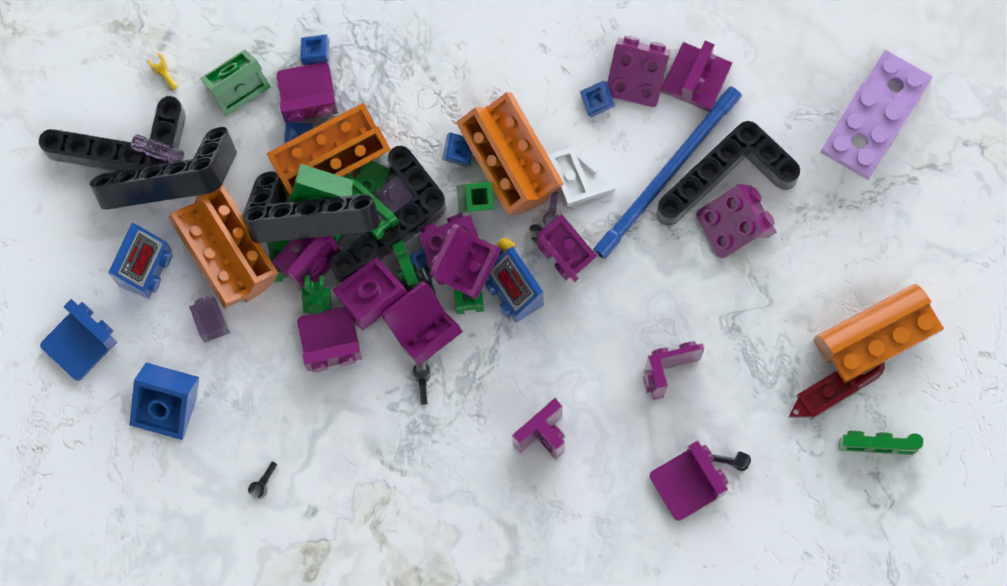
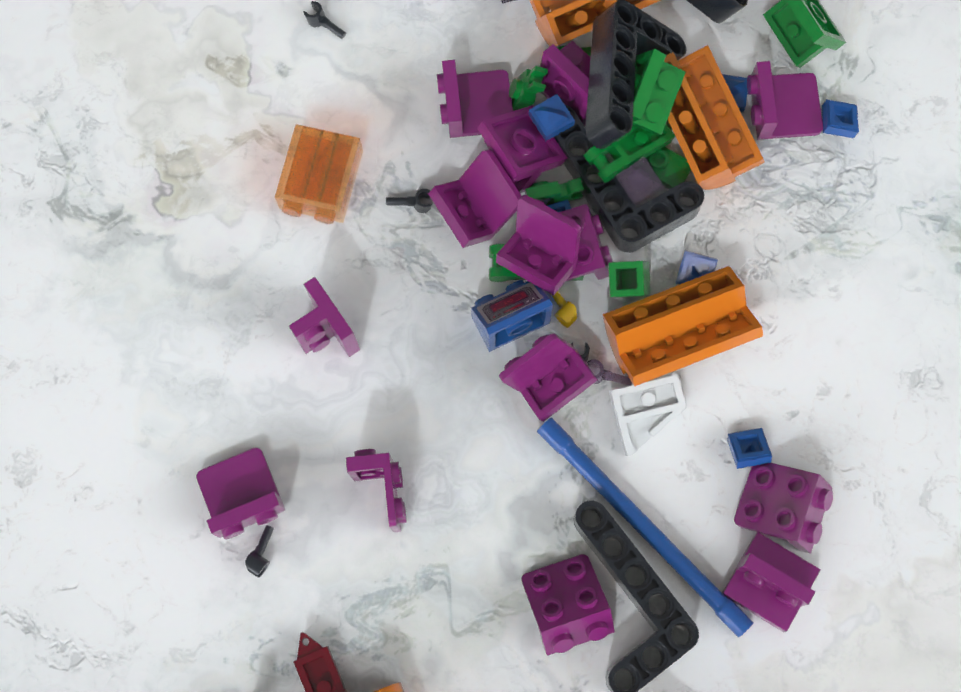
camera: 95 degrees right, 0 degrees up
(345, 270) = (551, 117): none -> blue tile
(410, 460) = (318, 174): none -> clear orange brick

